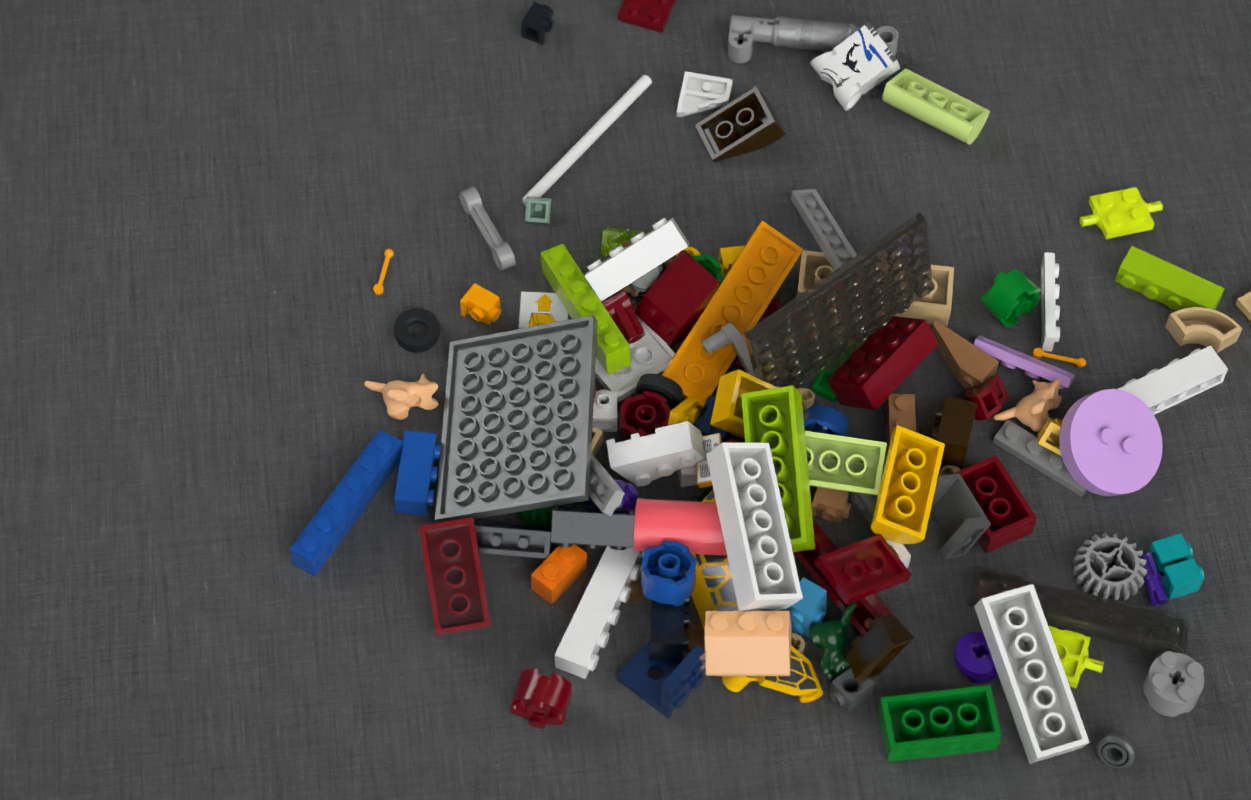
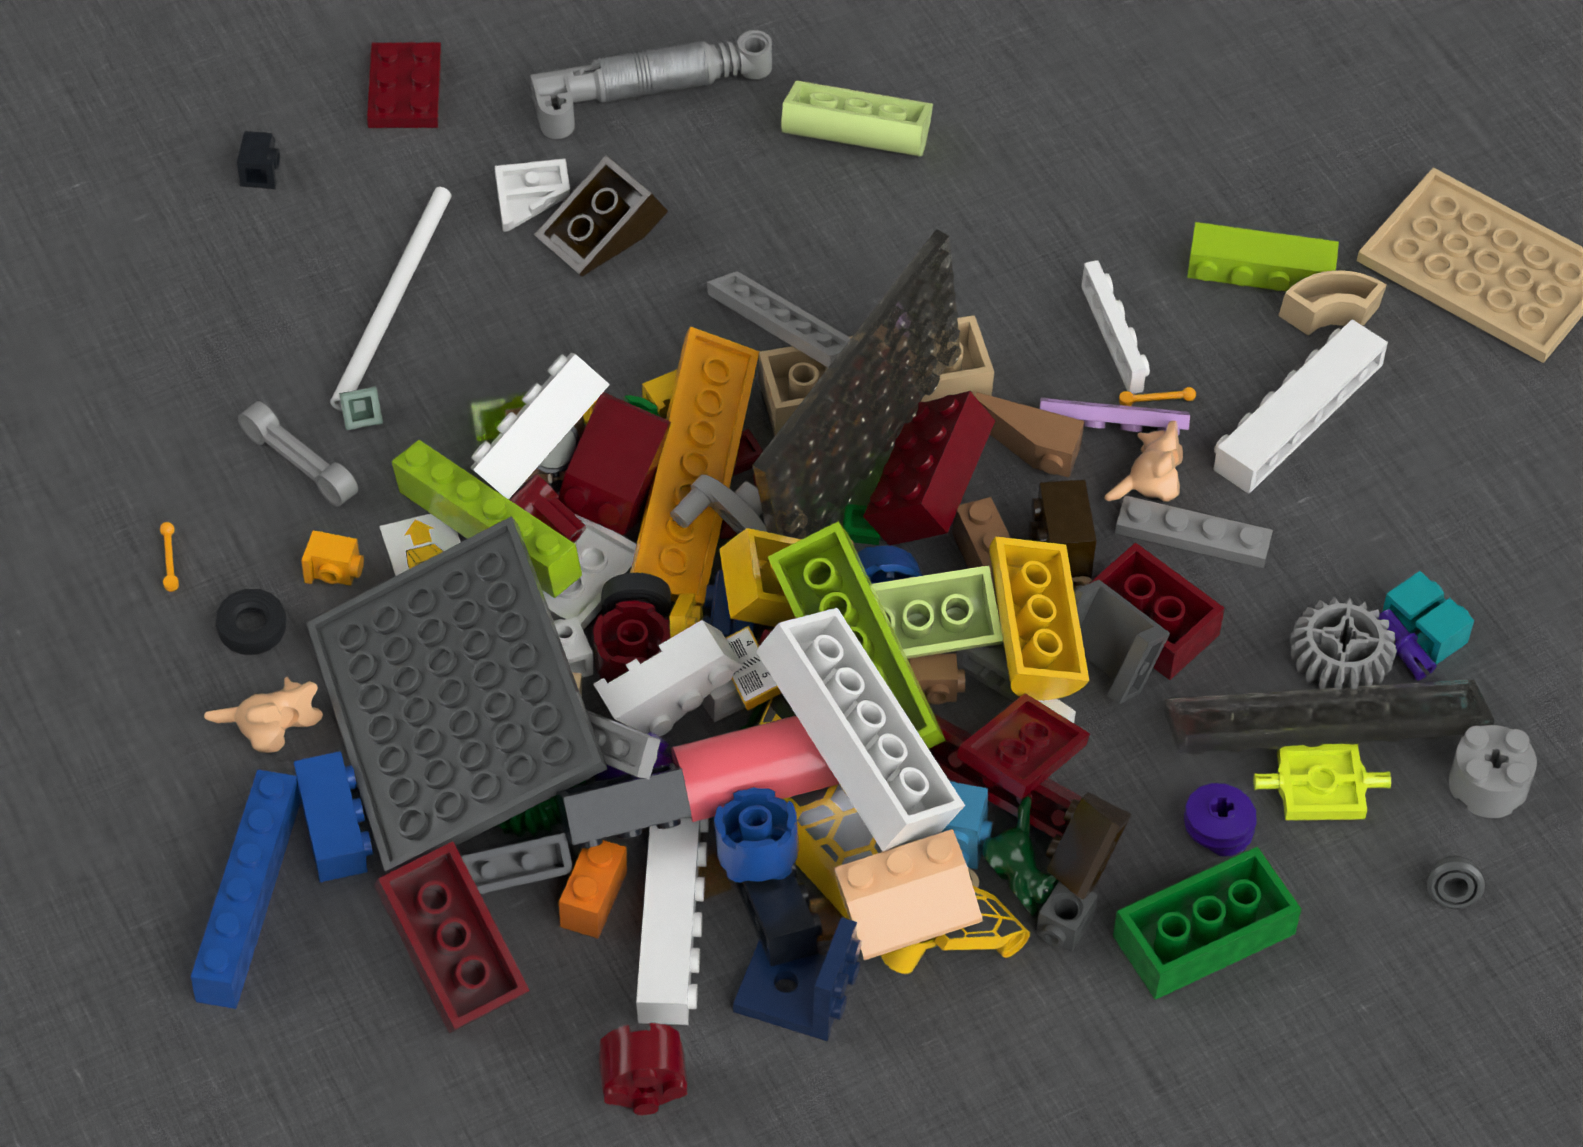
camera: 20 degrees left, 5 degrees down
(856, 65) = (730, 92): white piece -> none
(988, 396) = (1092, 466): dark red brick -> none
(1011, 297) = (1064, 333): green brick -> none
(1031, 673) = (1306, 813): white brick -> none
(1050, 434) = (1199, 495): yellow brick -> none
(1111, 442) = (1279, 481): lavender brick -> none
(1121, 213) = (1158, 187): neon yellow plate -> none

